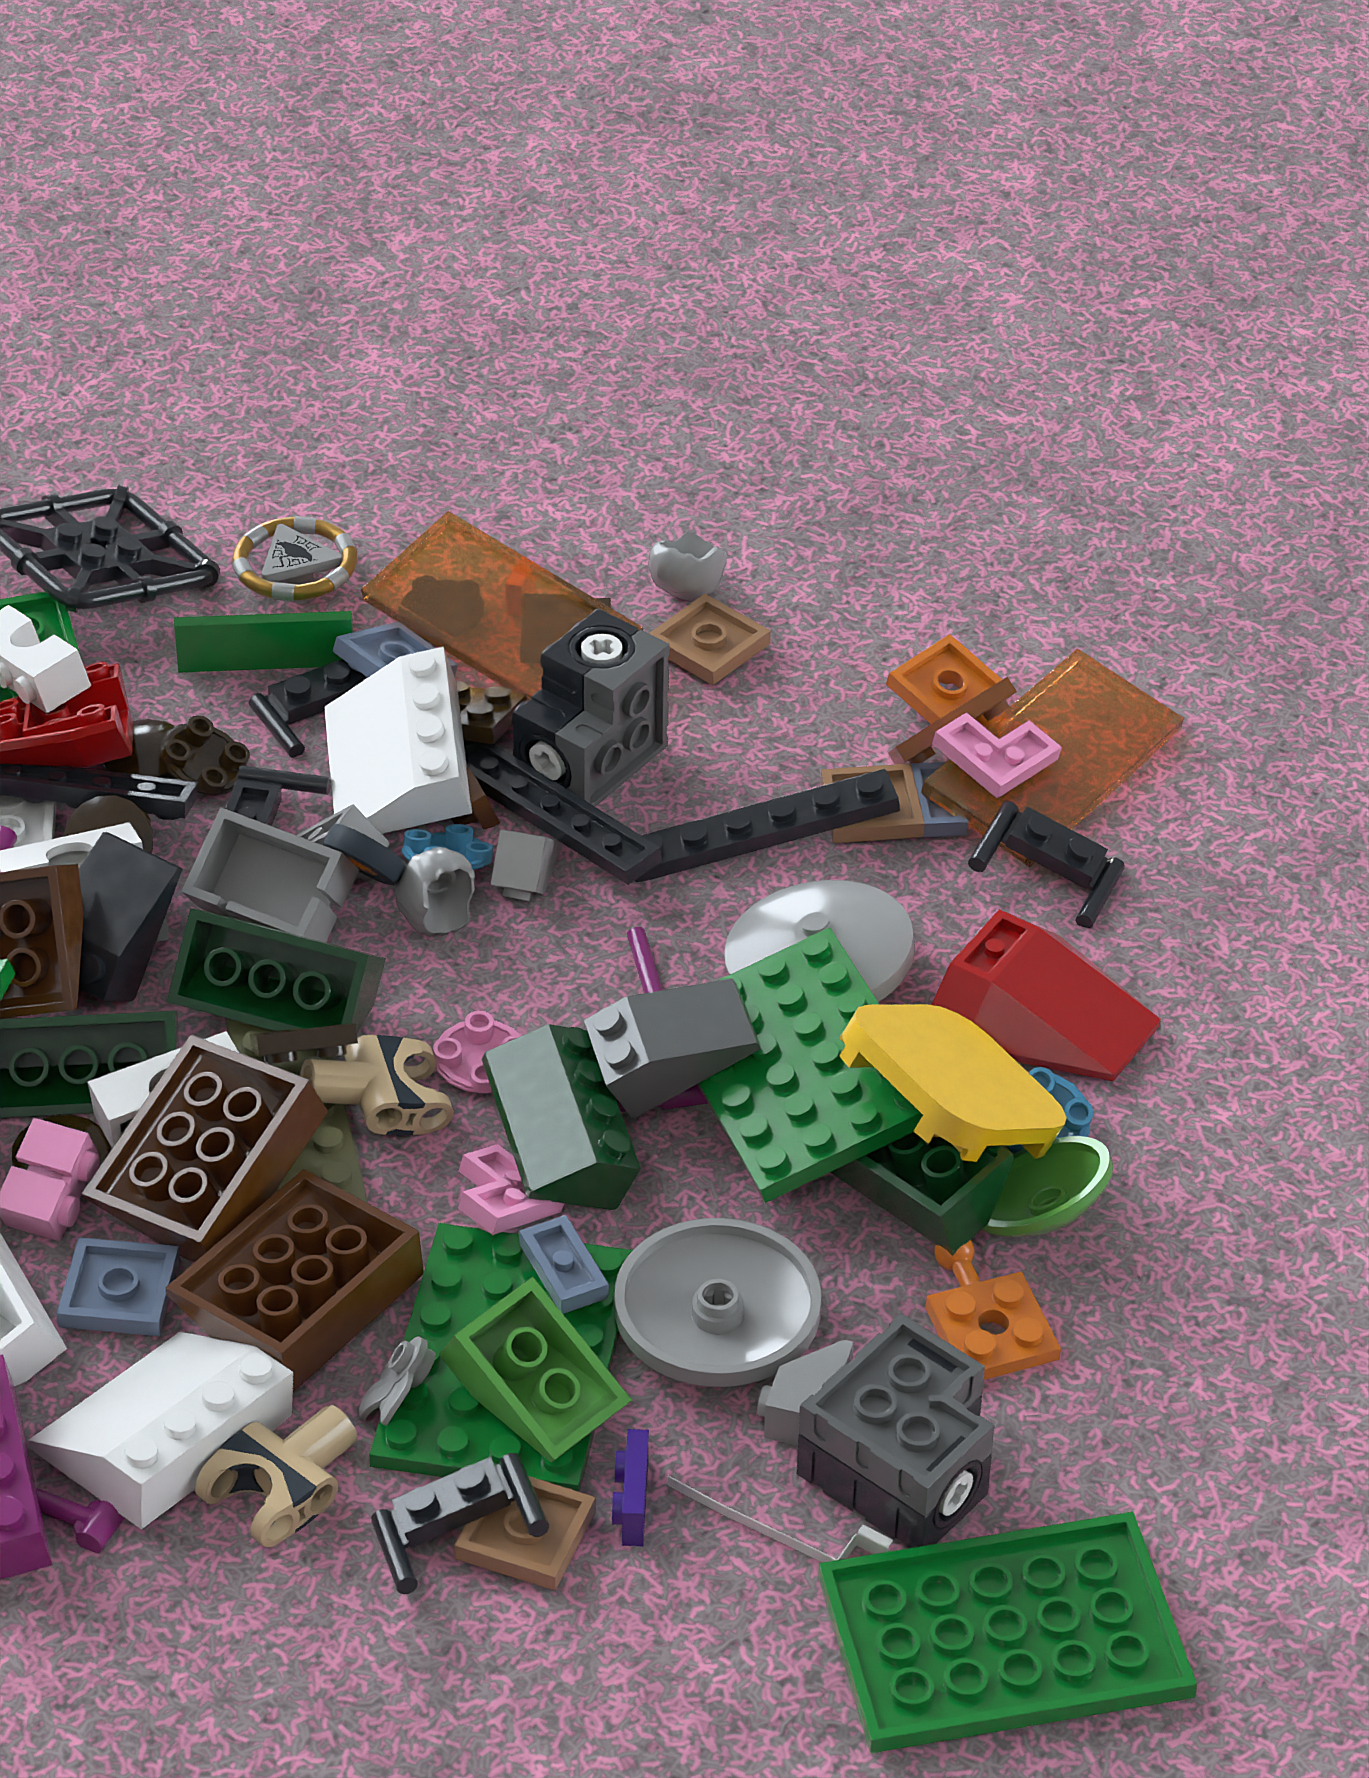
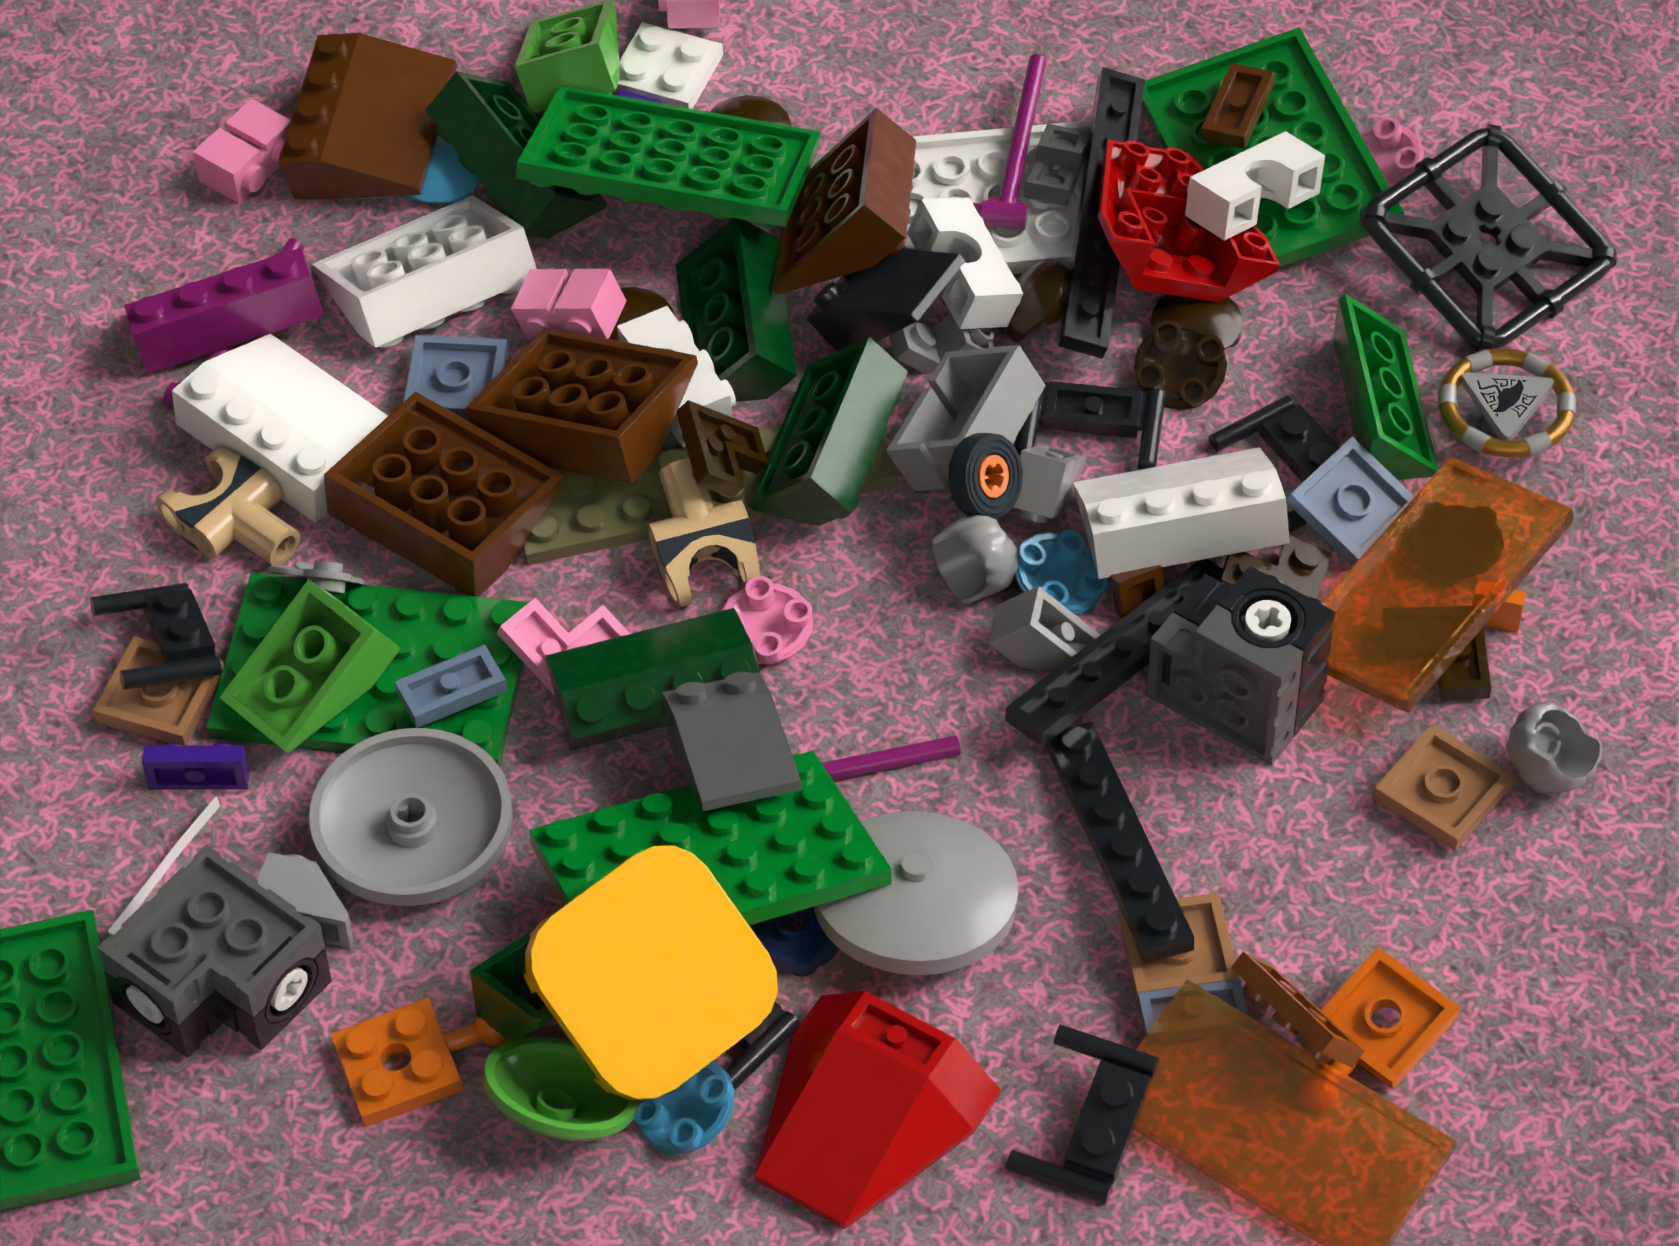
camera: 90 degrees right, 10 degrees up
(994, 761) = (1218, 1048): bright pink plate -> none

